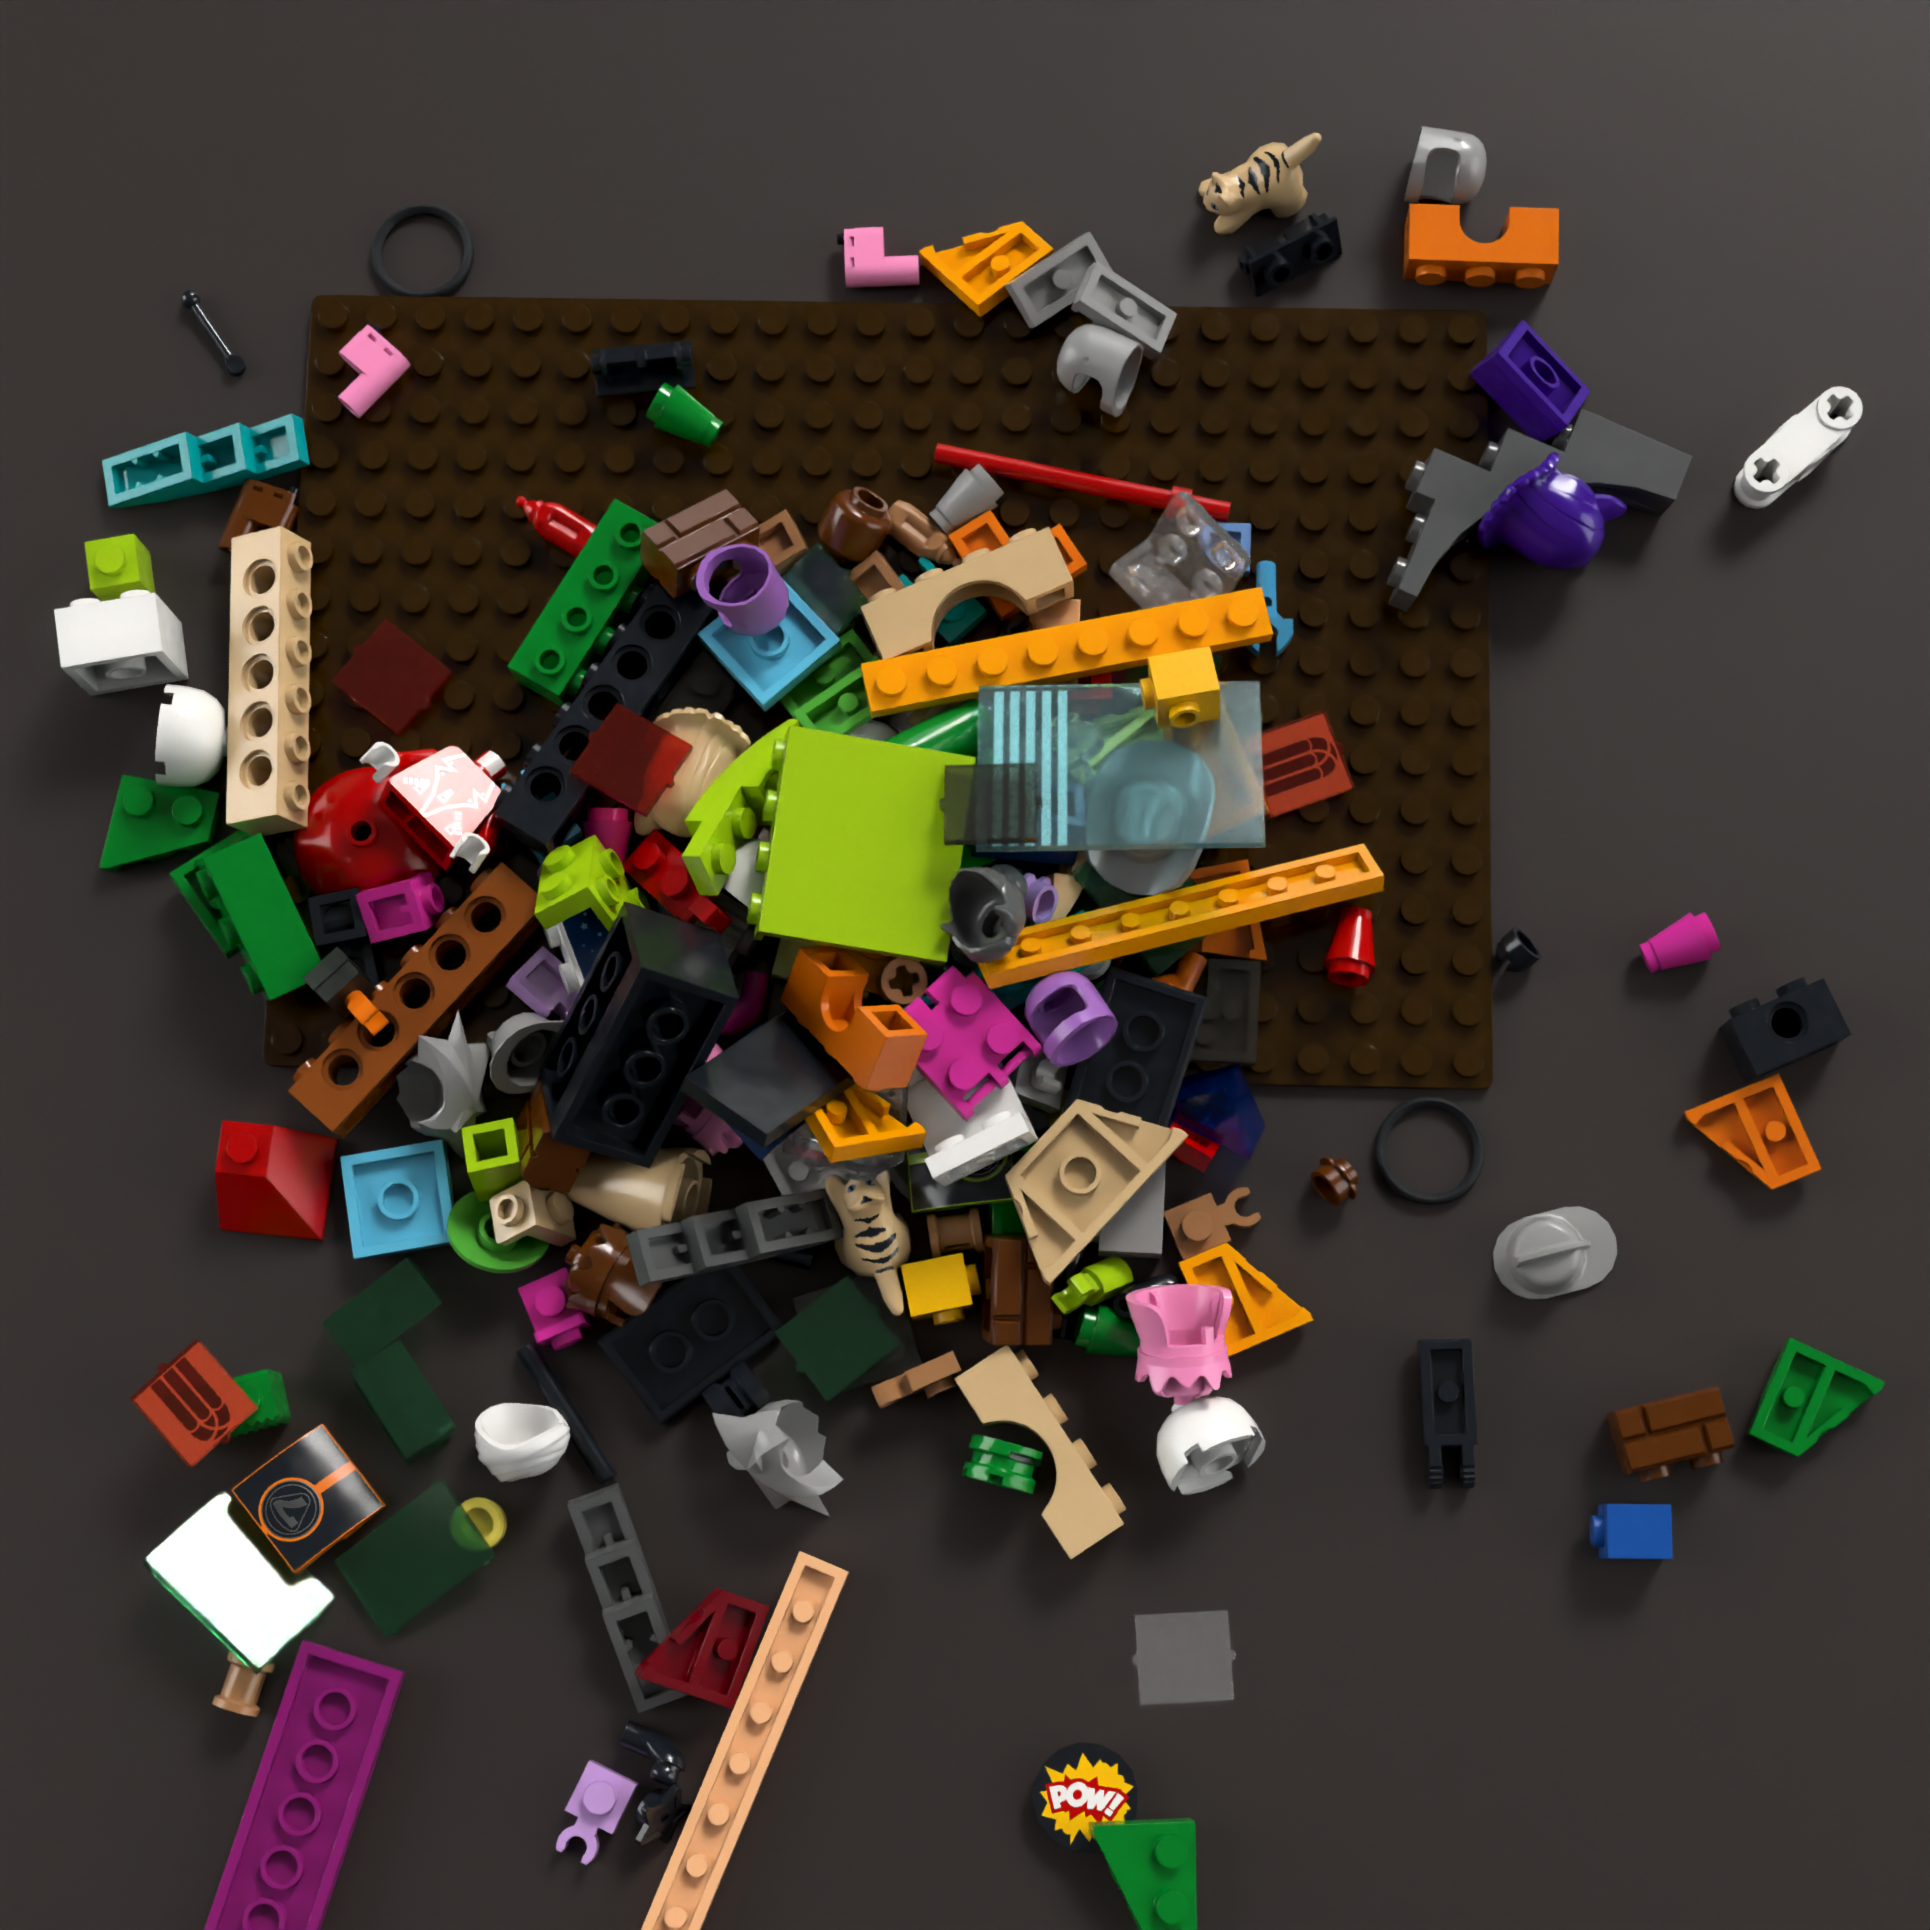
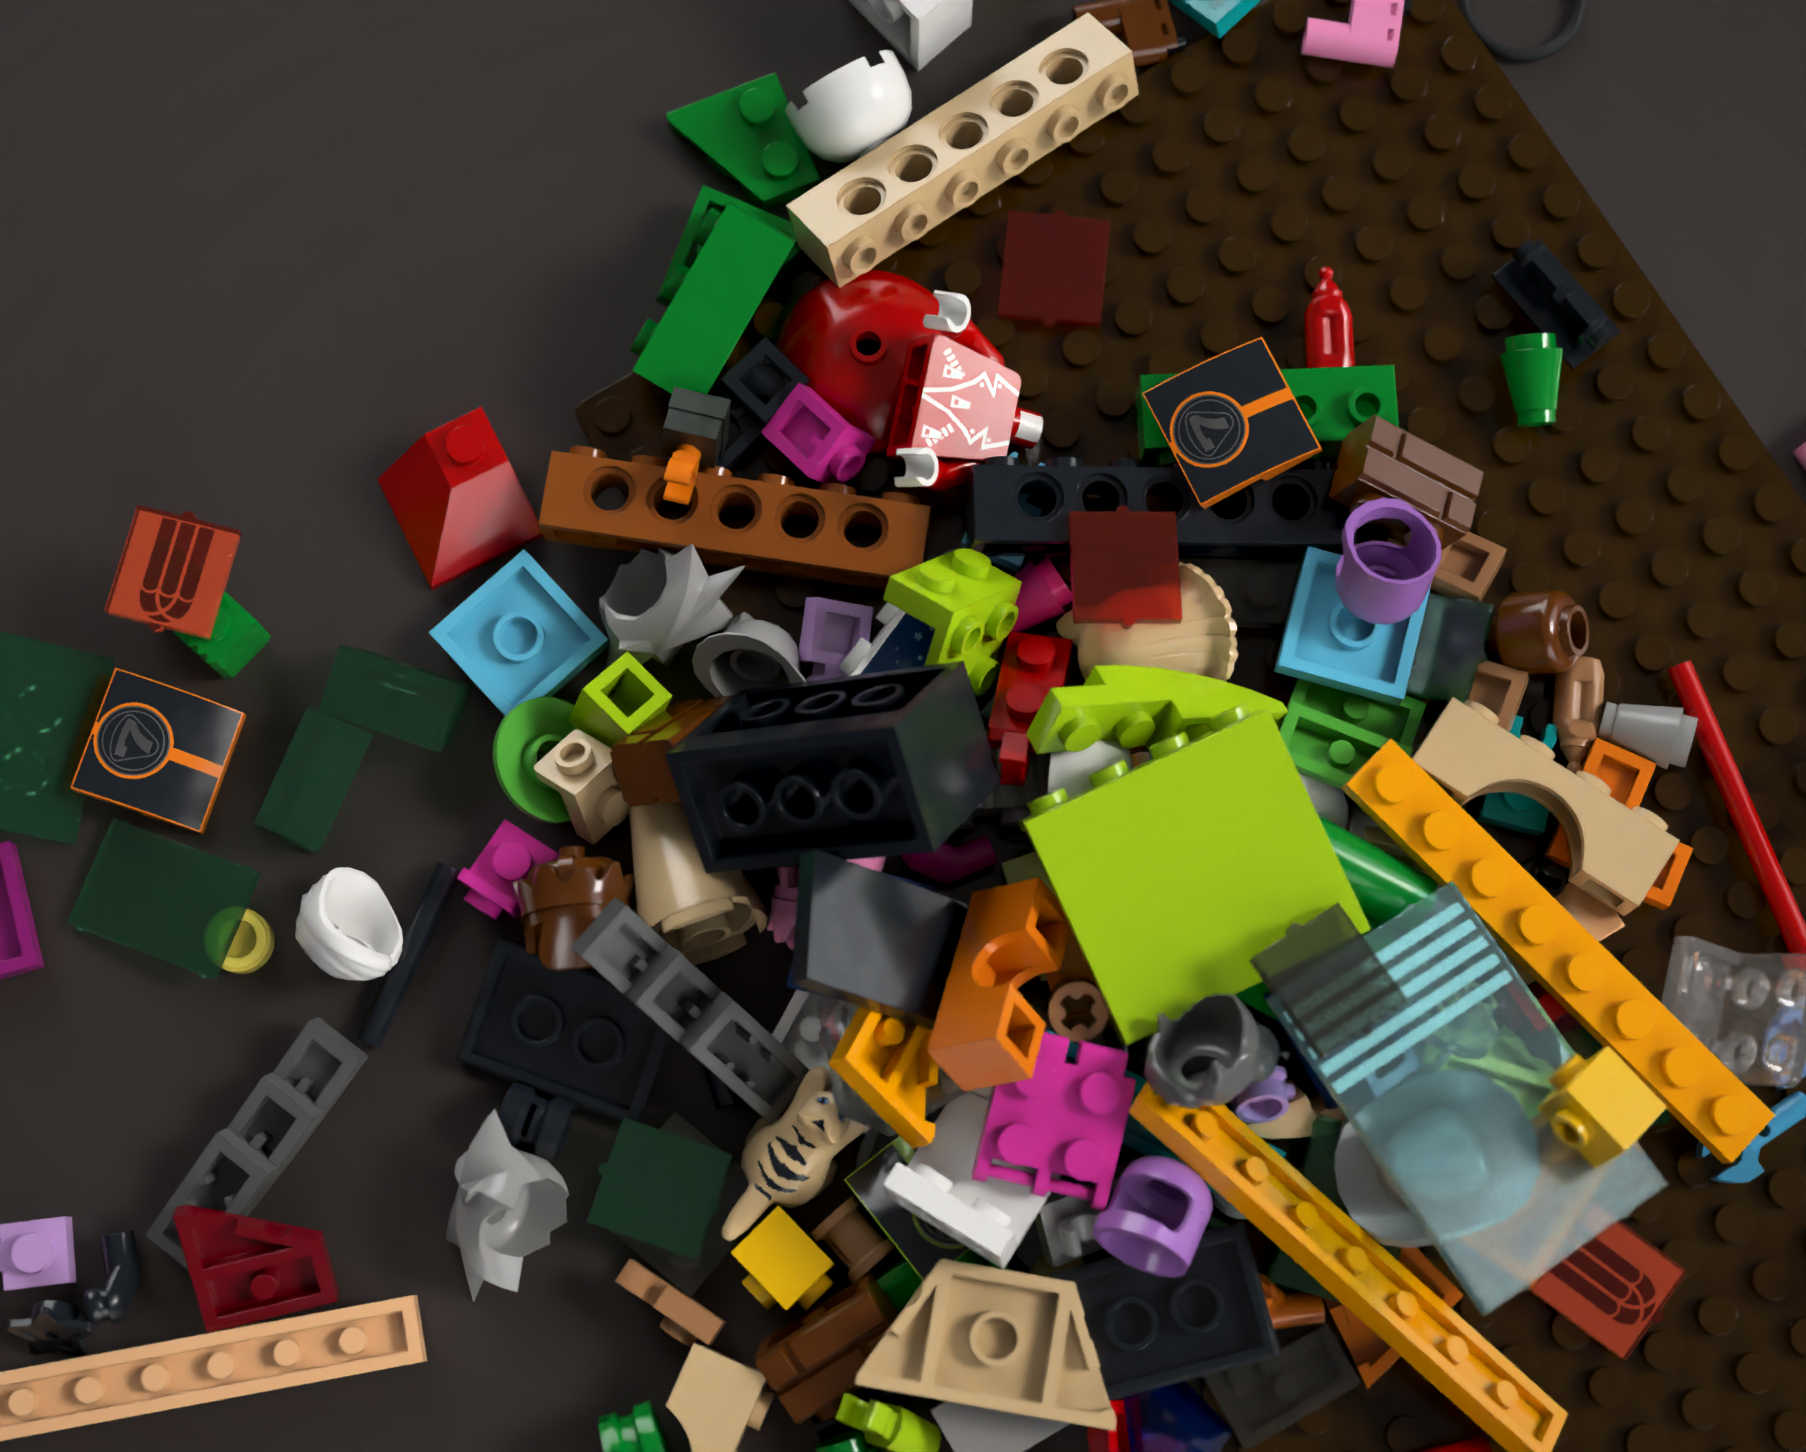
camera: 50 degrees right, 0 degrees up
(581, 626) = (1232, 421): none -> black slope

